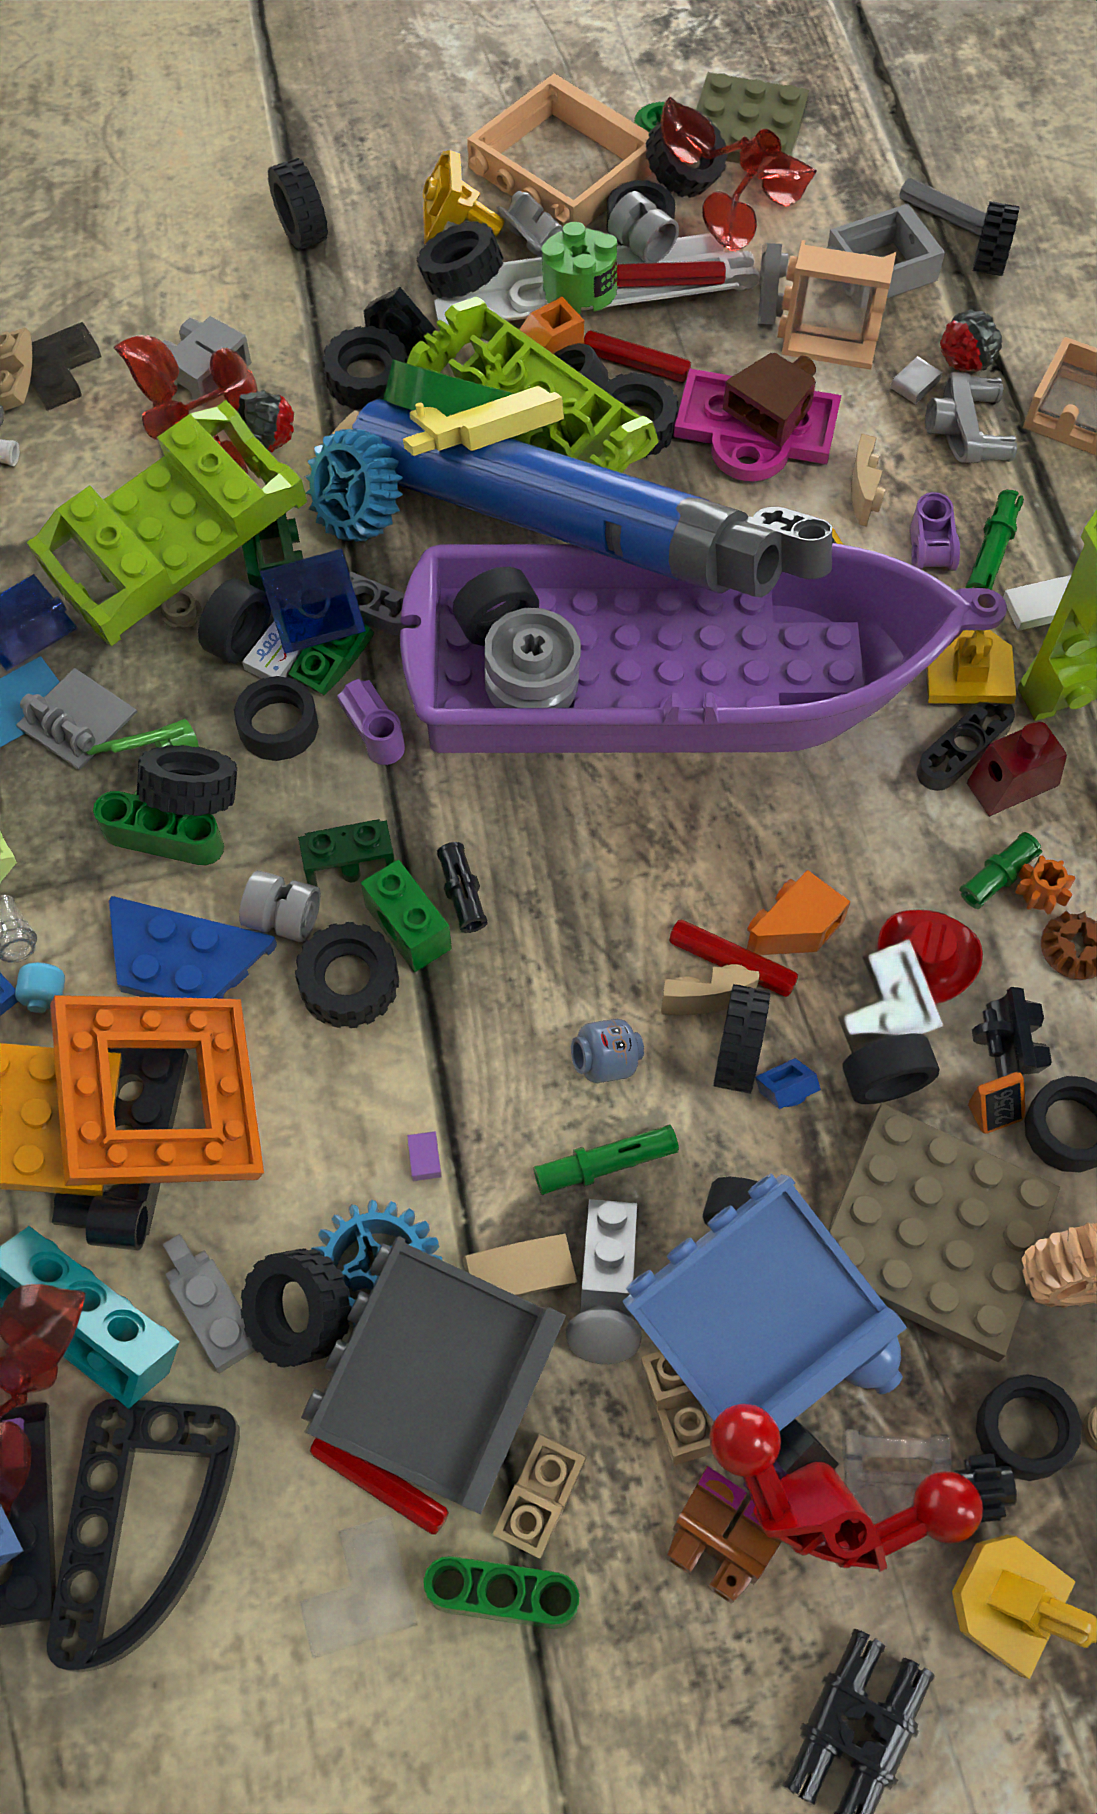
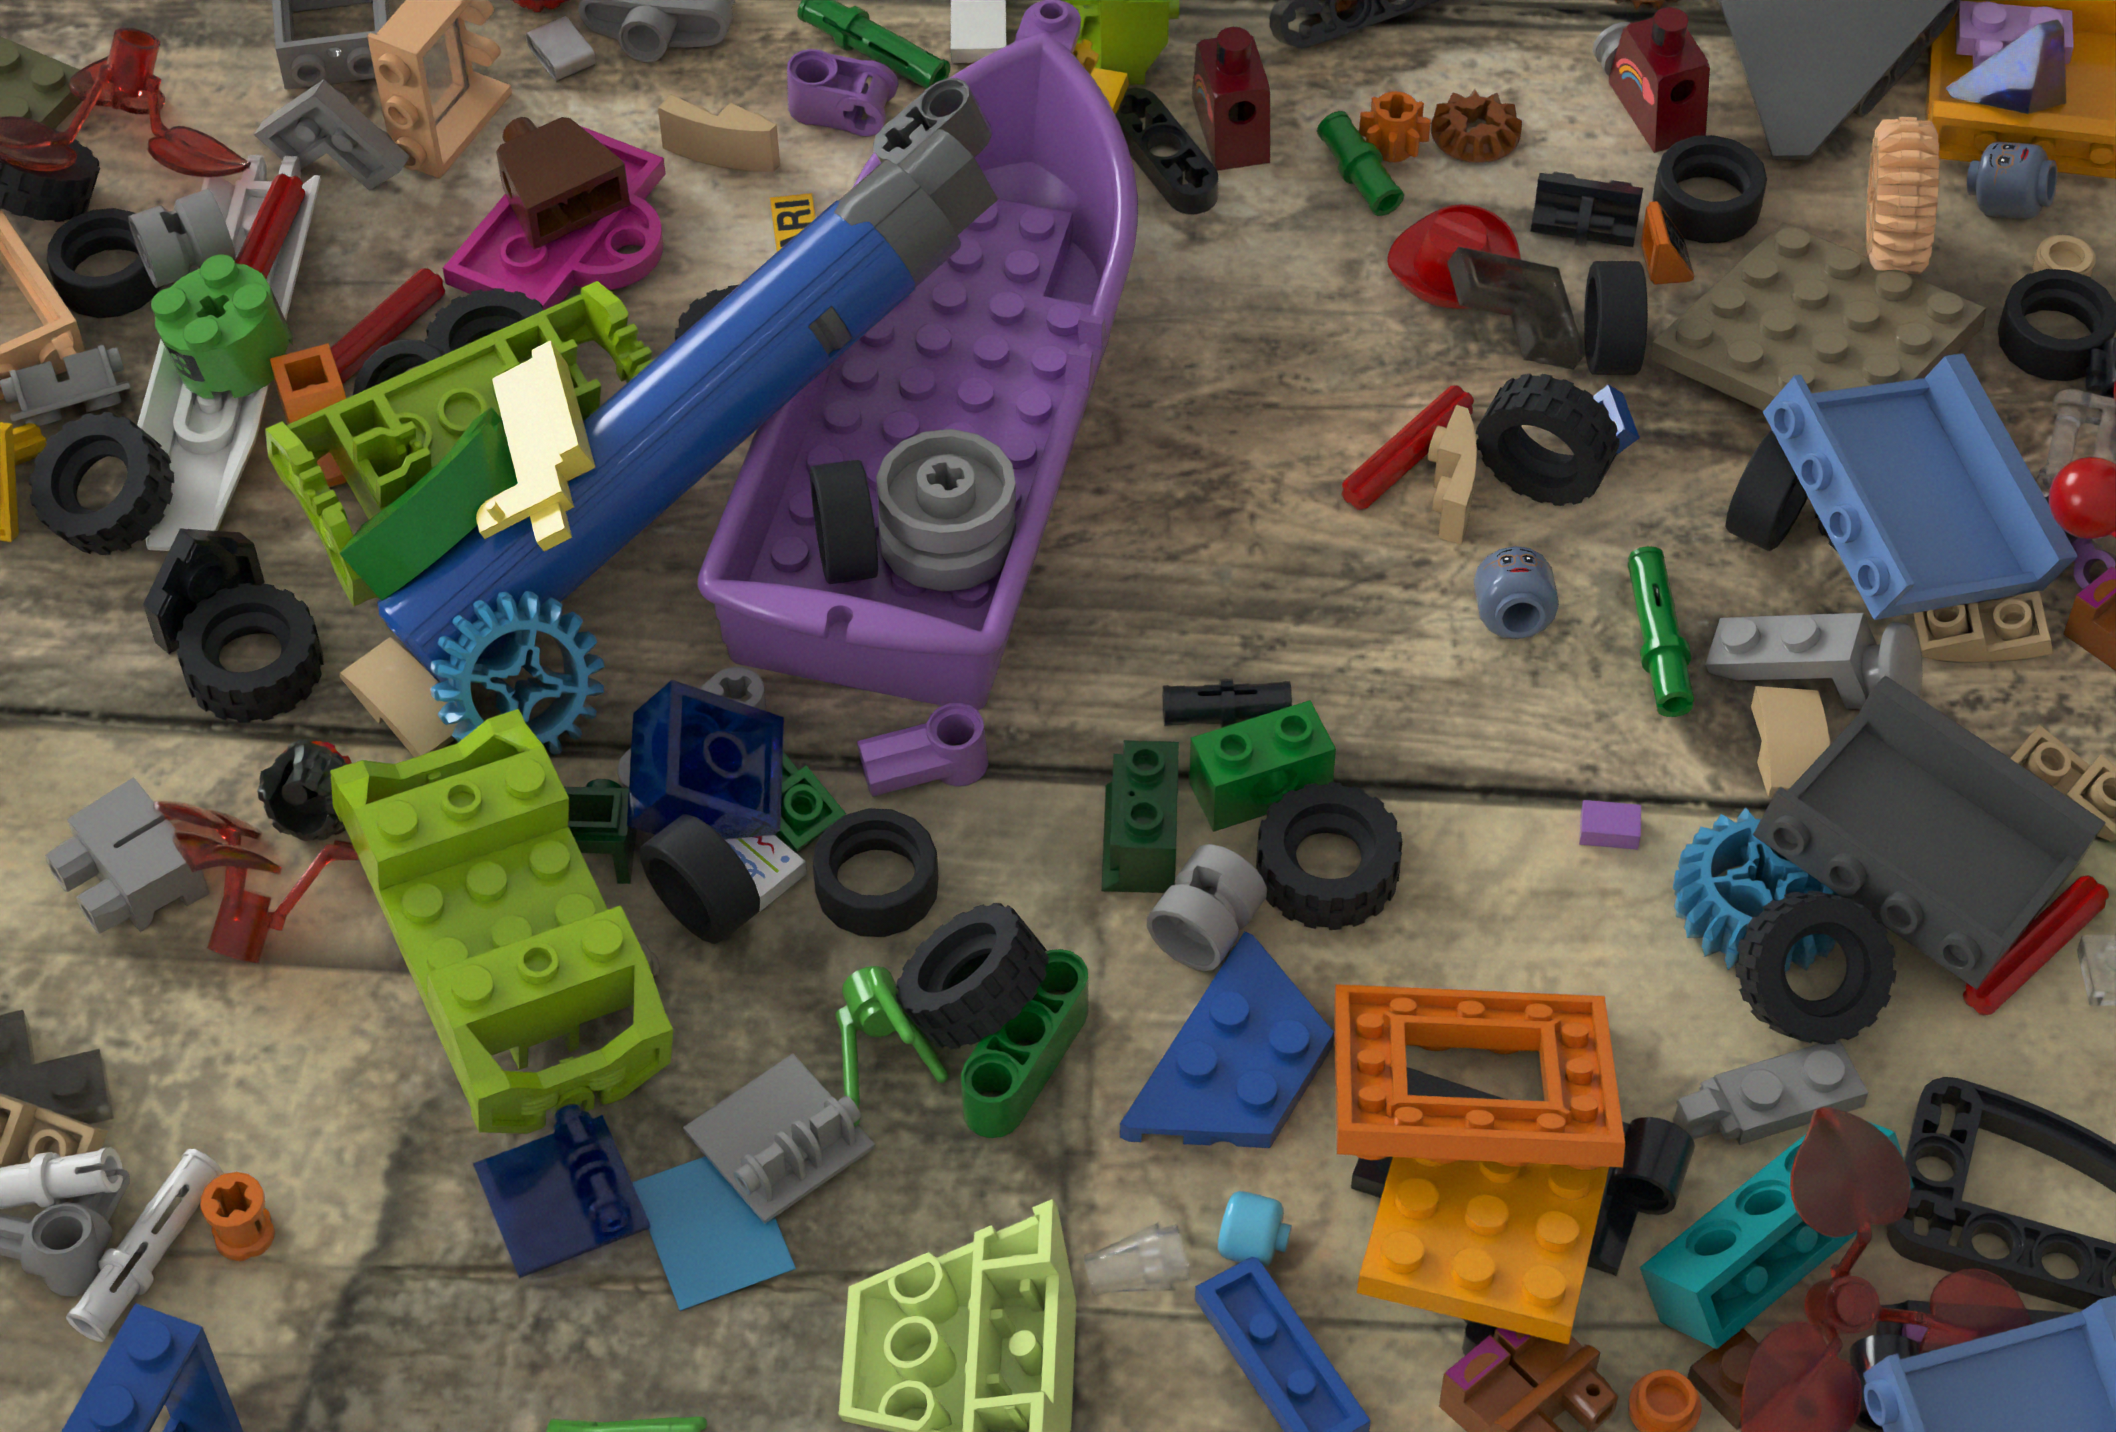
camera: 75 degrees left, 10 degrees down
(800, 920) = (1373, 360): orange slope -> none

